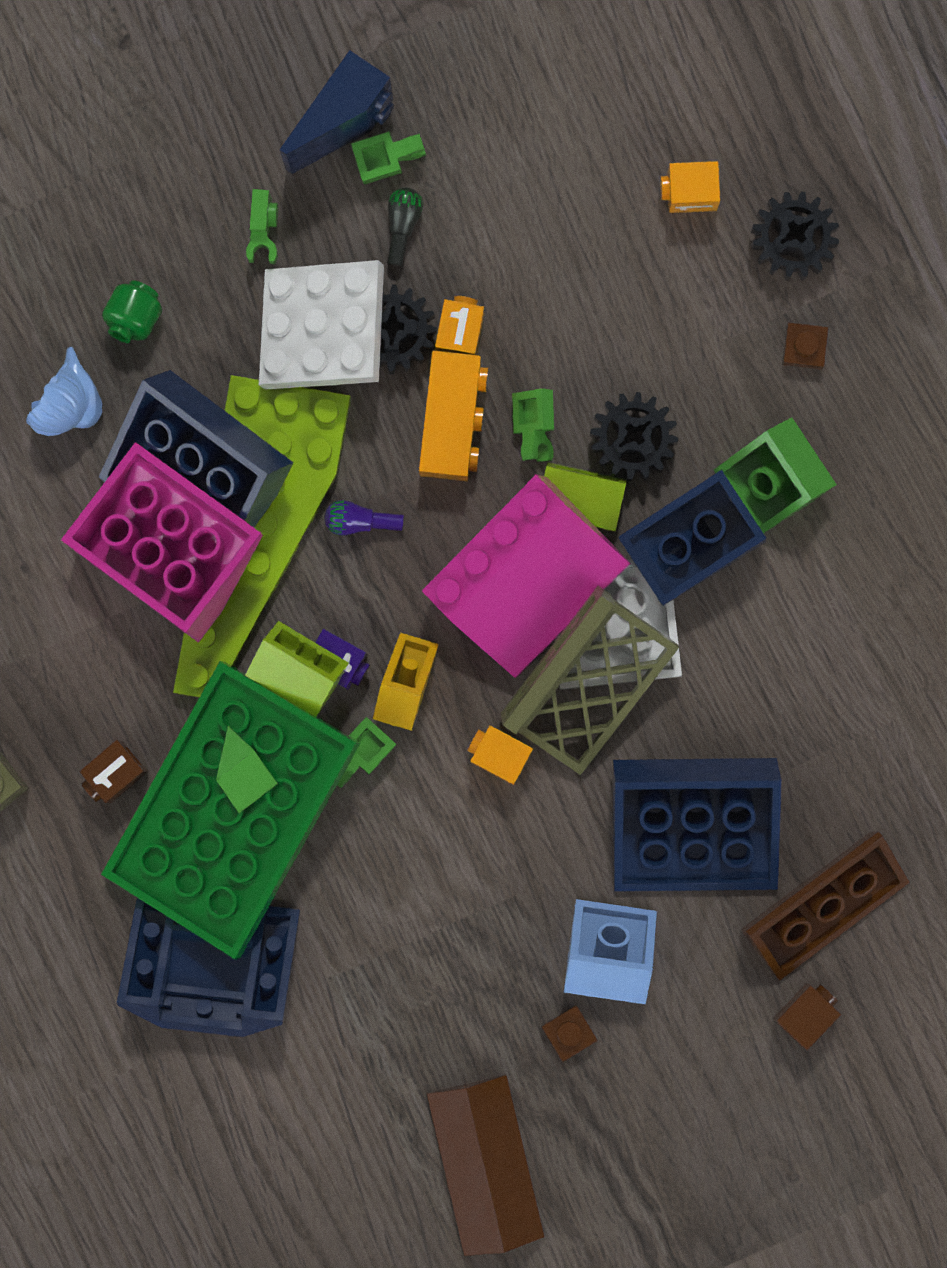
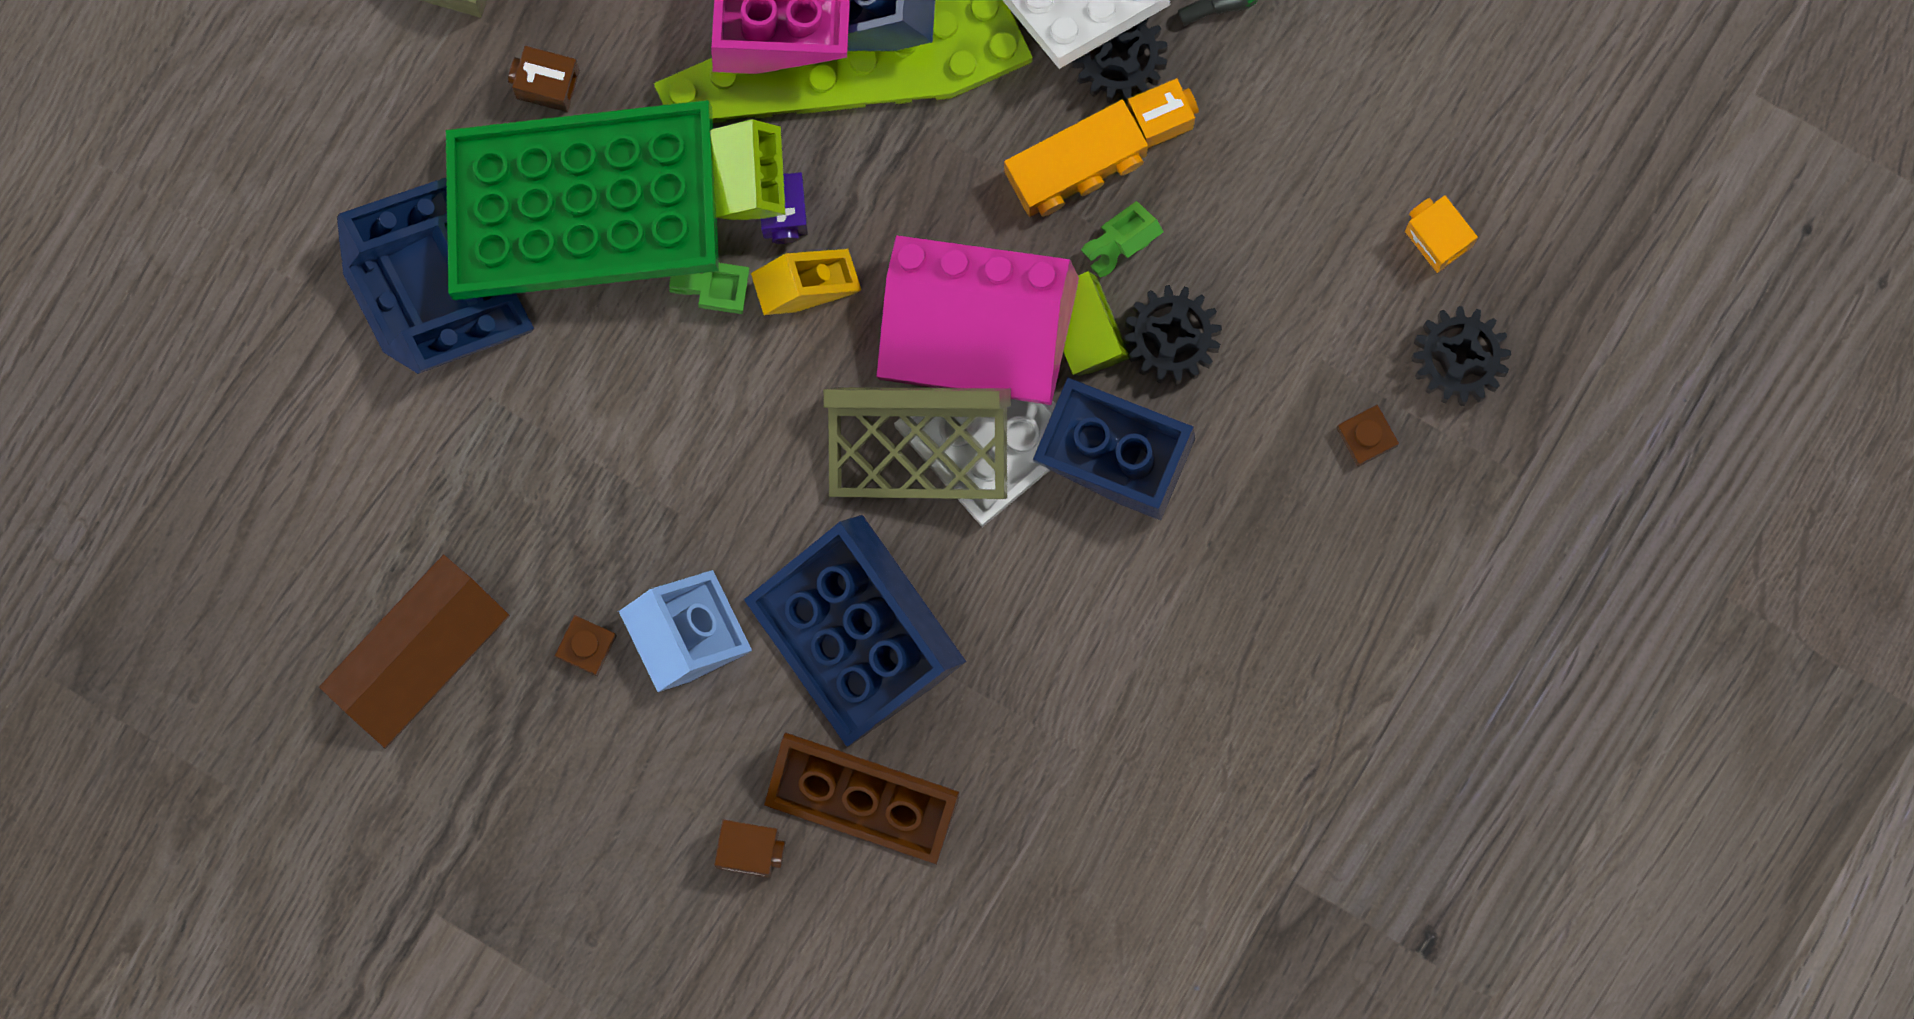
camera: 50 degrees right, 5 degrees down
(242, 772) = (621, 185): bright green sticker -> none
(349, 518) = (920, 132): dark purple piece -> none
(499, 754) = (797, 409): light orange brick -> none
(777, 474) = (1228, 487): bright green slope -> none

